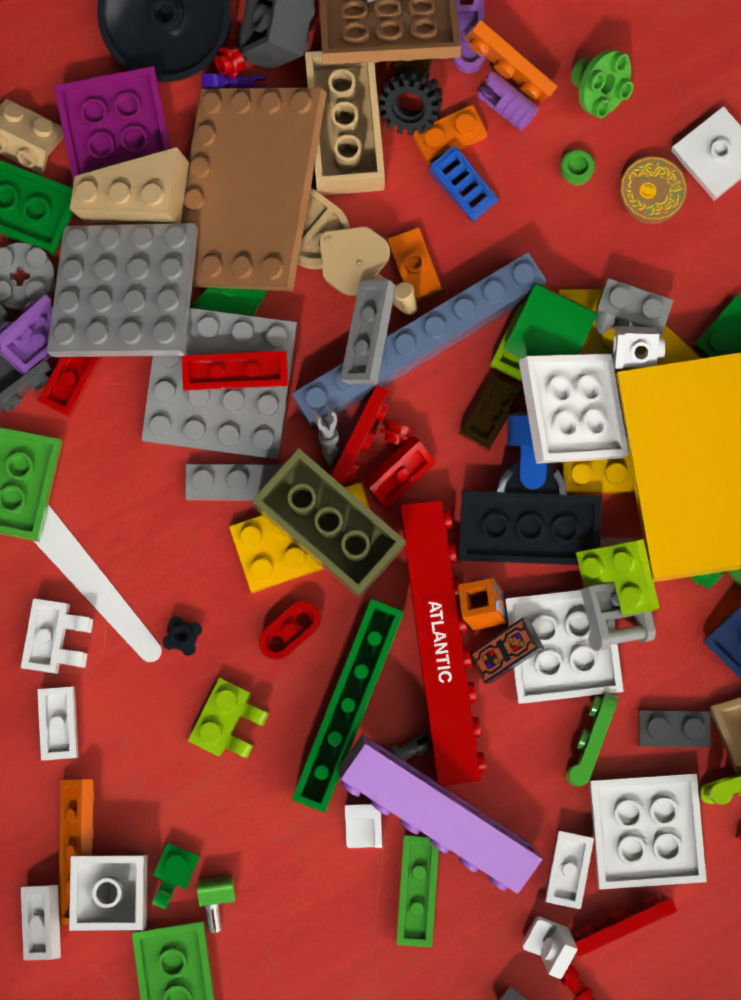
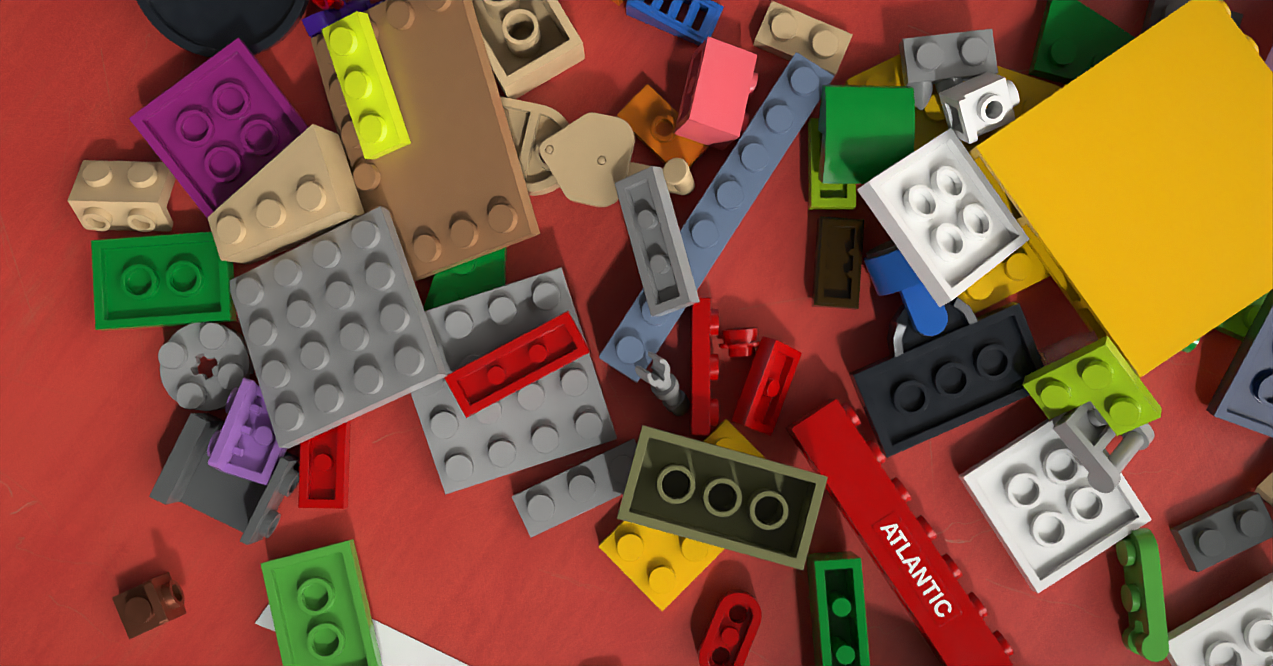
camera: 25 degrees left, 5 degrees up
(224, 138) = (366, 85): none -> neon yellow plate
(461, 256) = (717, 94): none -> coral brick
(482, 604) = (942, 498): orange brick -> none
(506, 650) = (997, 539): tile -> none
(544, 247) = (790, 31): none -> tan plate

